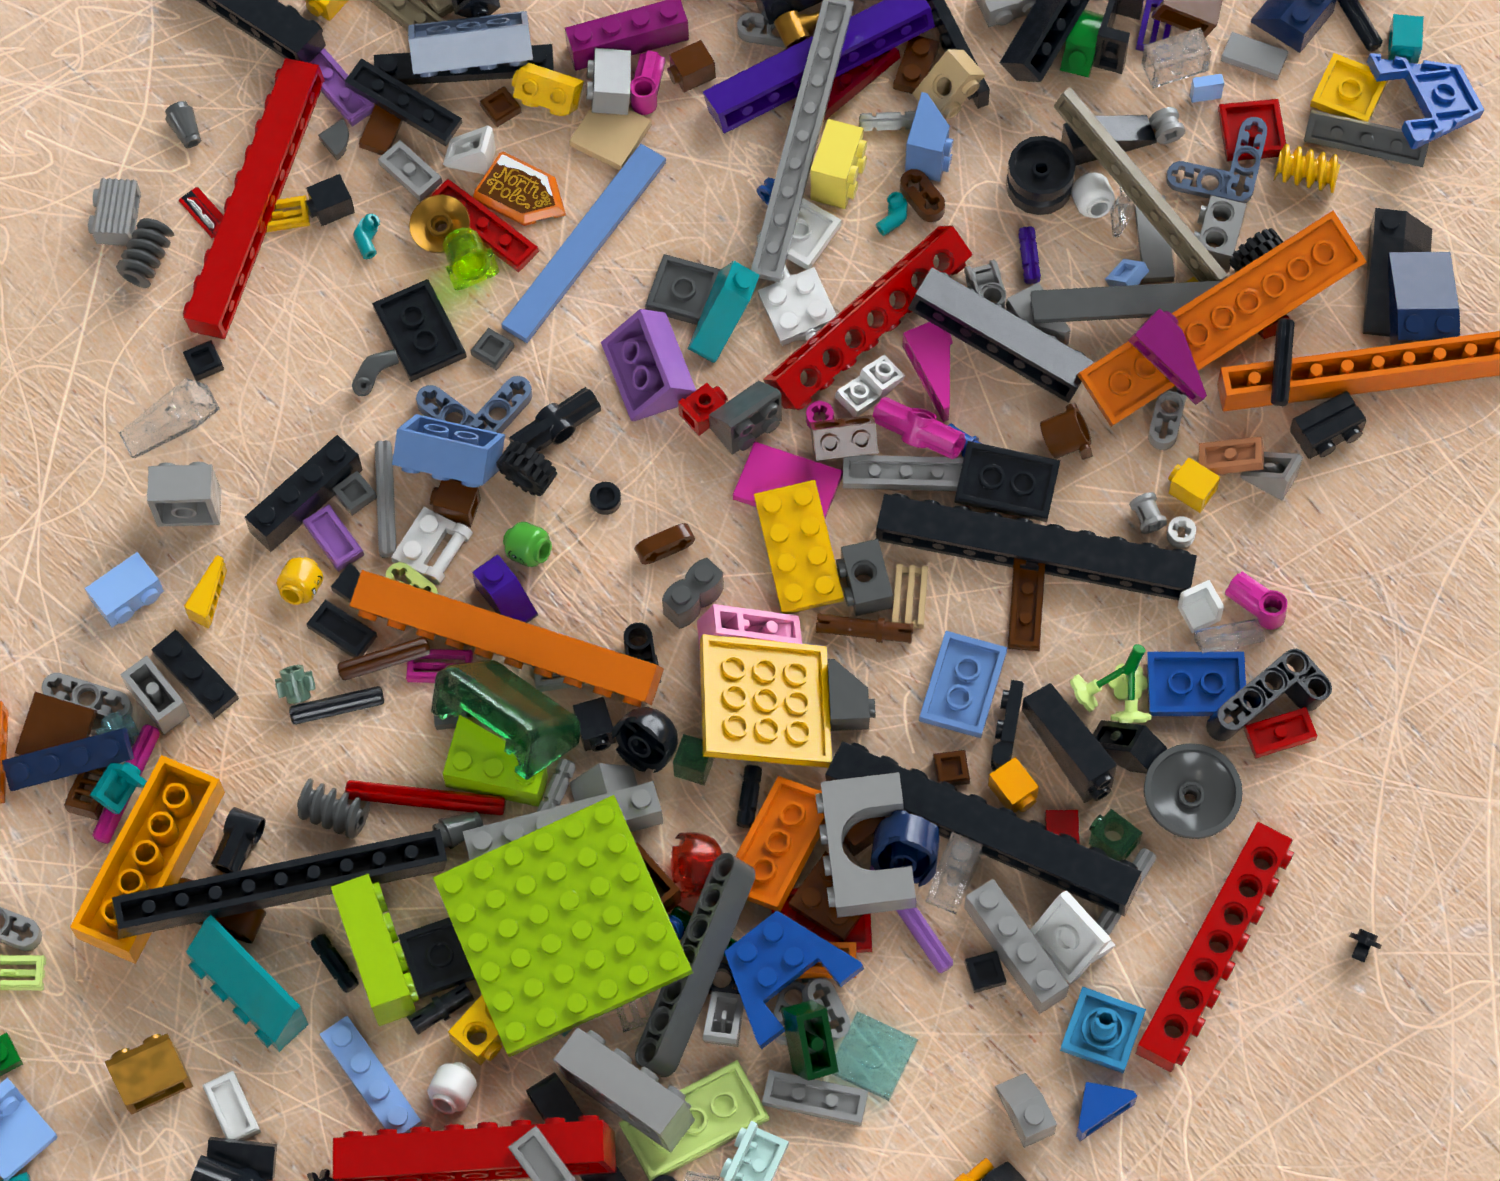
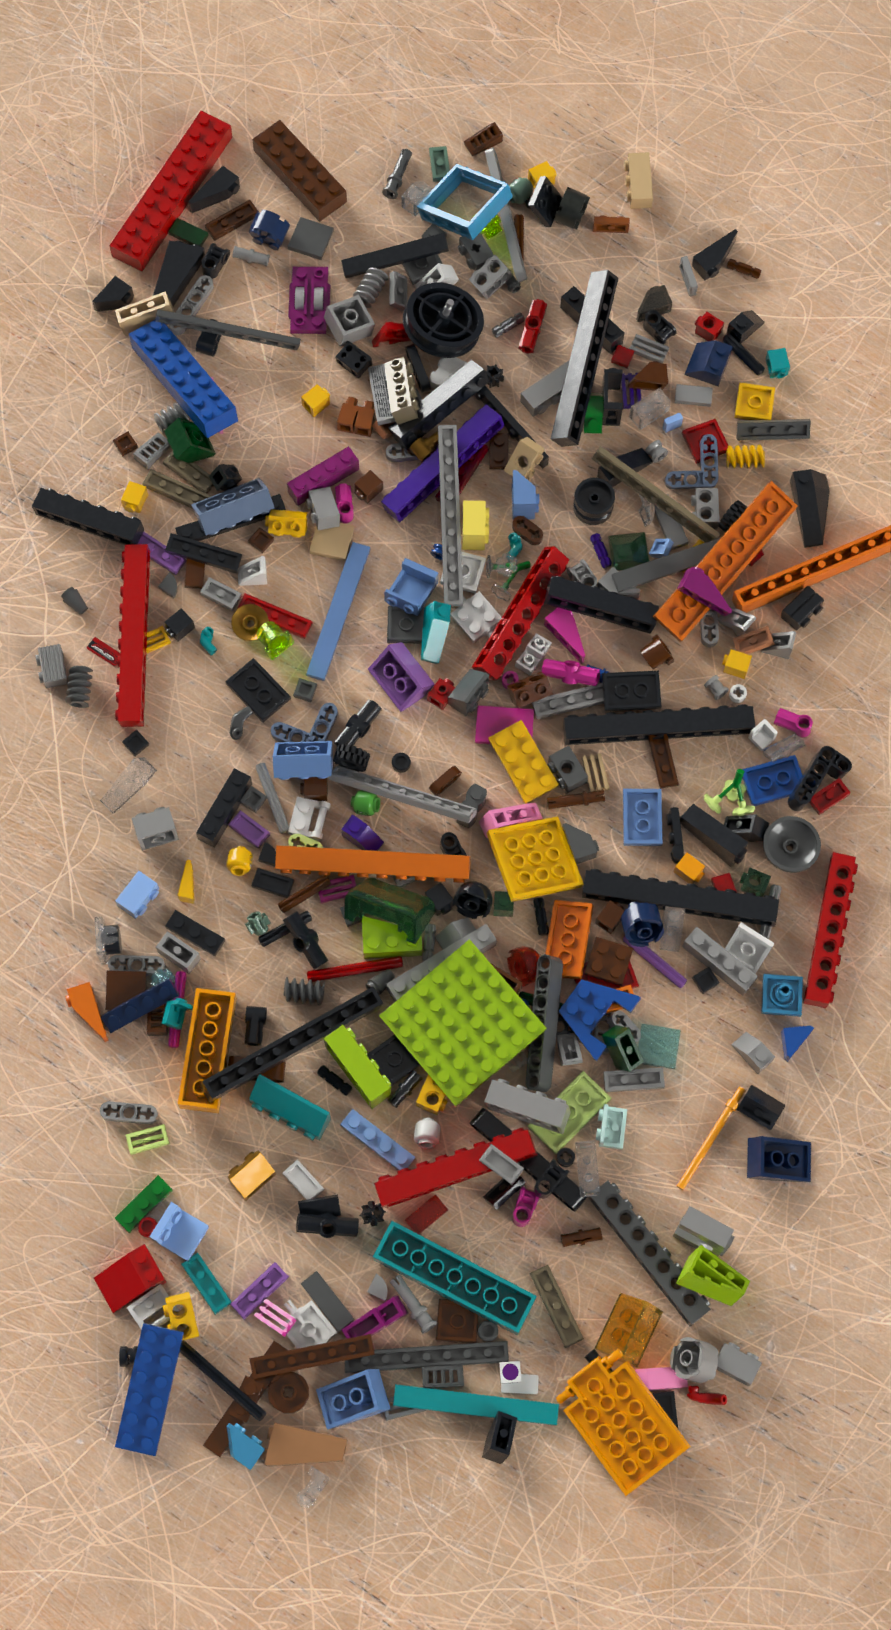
camera: 20 degrees left, 5 degrees up
(50, 644) = (107, 940): none -> clear piece
(360, 730) = (305, 940): none -> black piece
(519, 191) = (290, 589): tile -> none
(588, 544) = (403, 794): none -> light grey tile
(709, 235) = (411, 587): none -> medium blue panel
(854, 888) = (620, 954): light grey arch -> none
(864, 236) = (507, 566): none -> clear plant
(886, 121) = (493, 490): light grey axle -> none
(951, 767) = (650, 867): reddish brown tile -> none
(1074, 264) = (628, 550): none -> clear green slope
(1093, 195) = (627, 505): white head -> none
(1215, 417) = (737, 620): none -> light grey slope
(1282, 362) = (768, 578): black axle -> none
(1422, 297) = (834, 518): slope -> none
(1440, 92) = (807, 390): blue wing -> none

